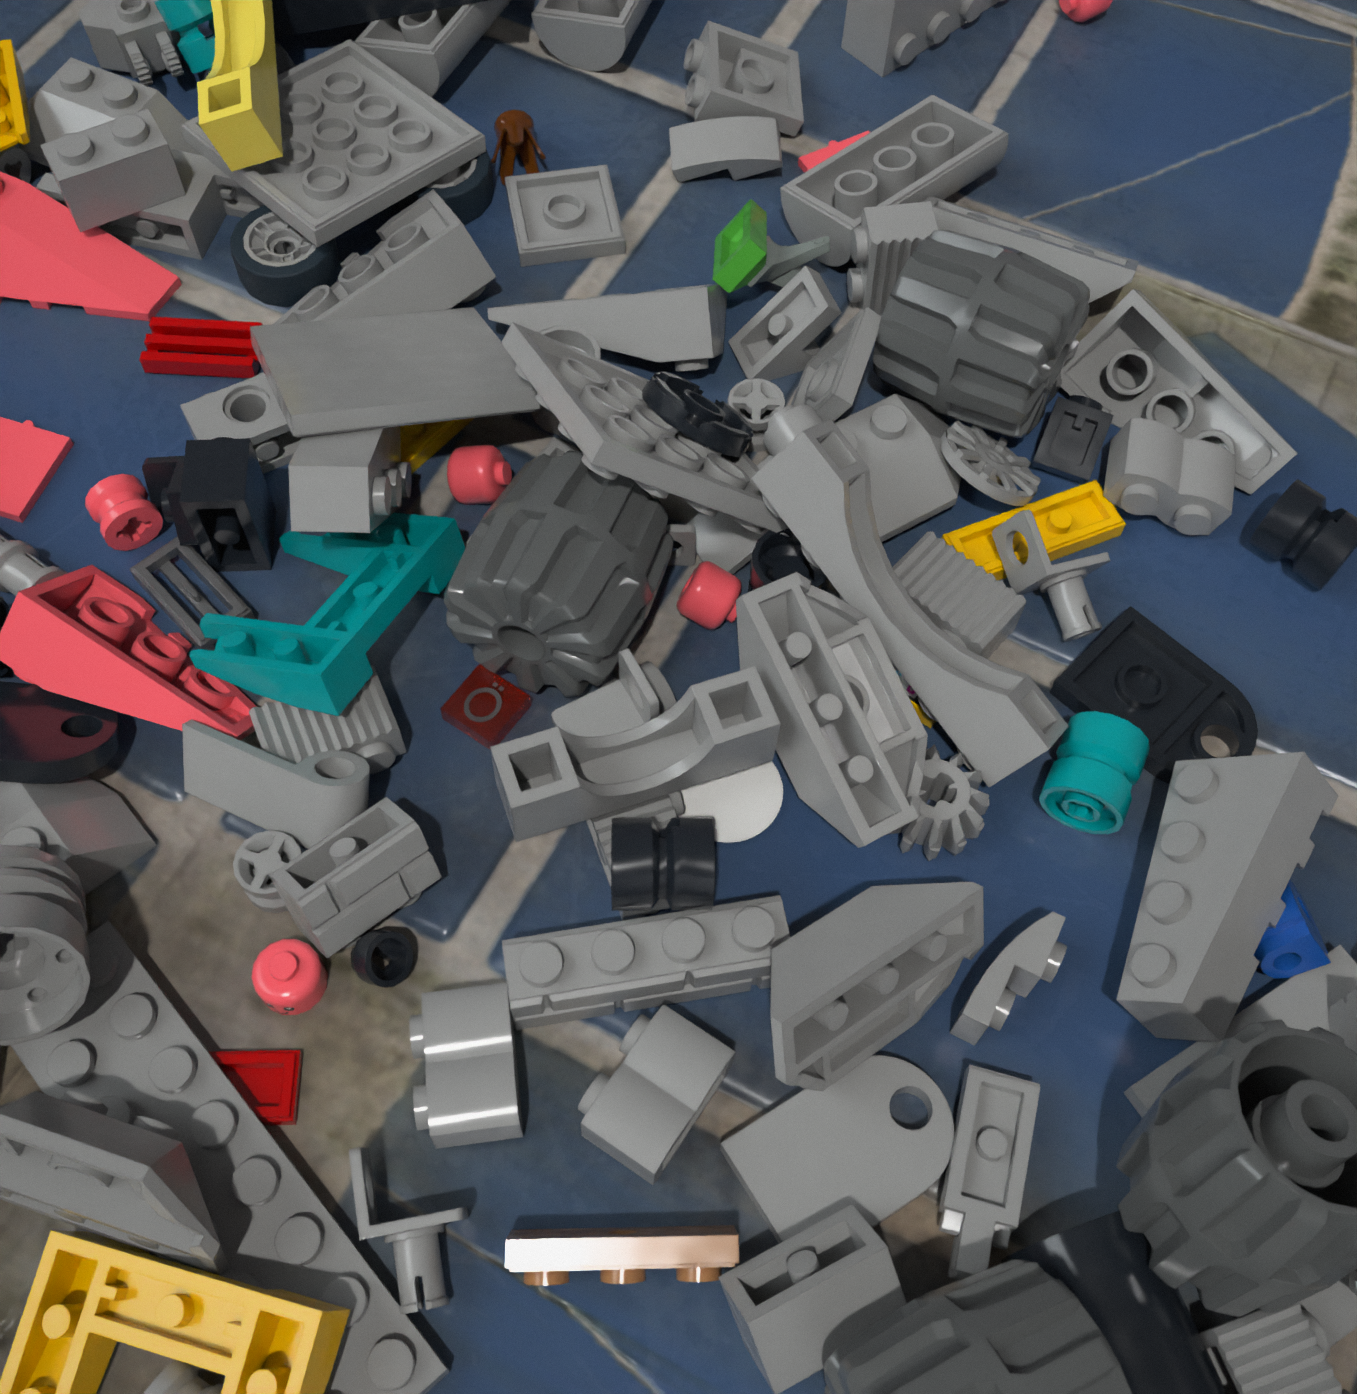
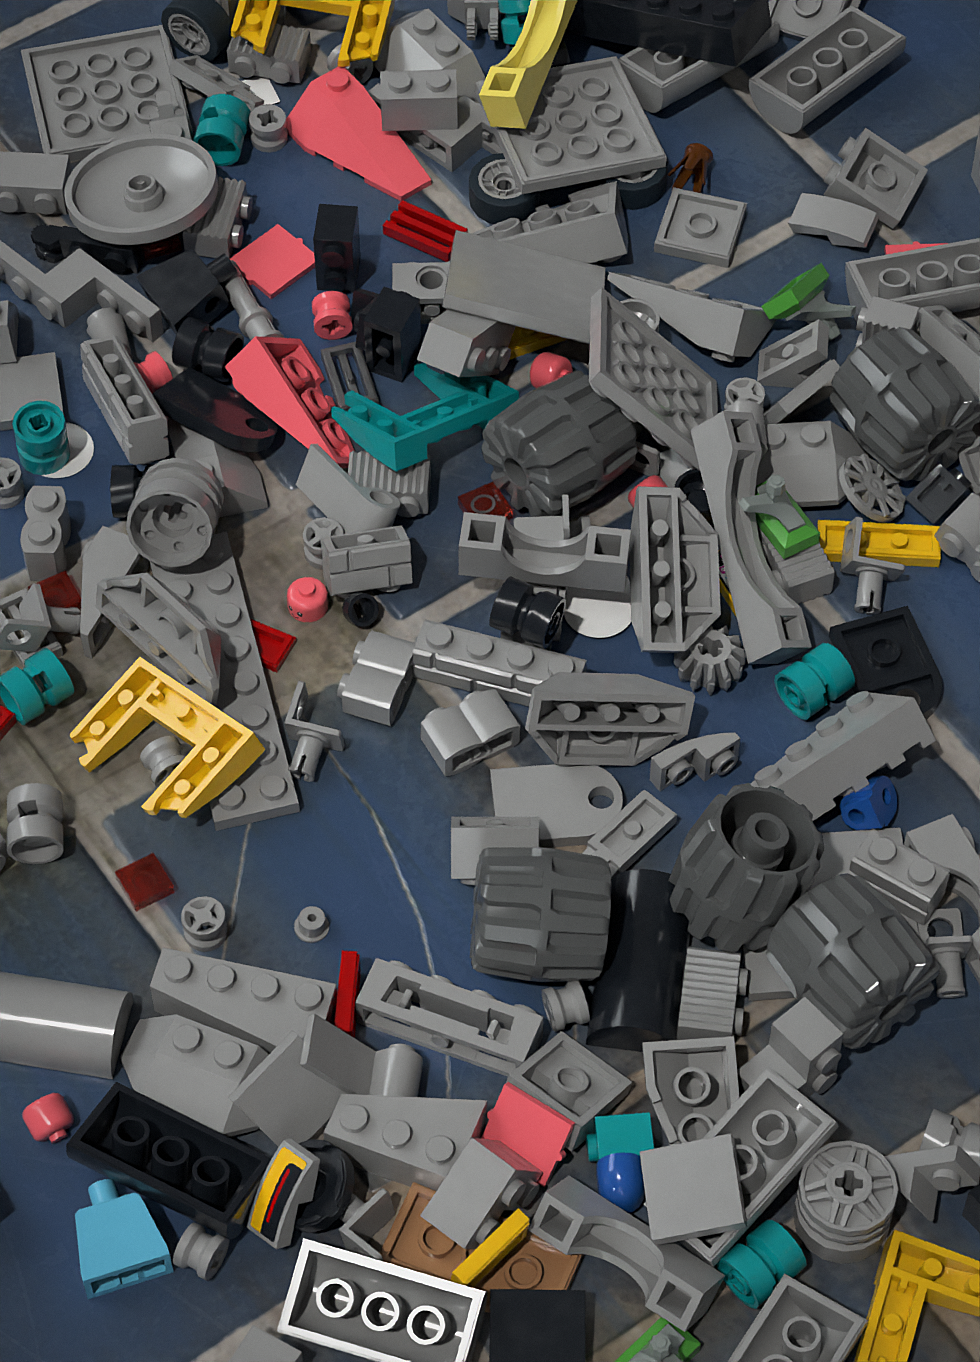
camera: 30 degrees right, 5 degrees down
(86, 411) = (337, 248): none -> black brick
(621, 1252) = (409, 790): tile -> none
(685, 408) = (692, 384): black tile -> none
(925, 556) = (780, 517): none -> piece

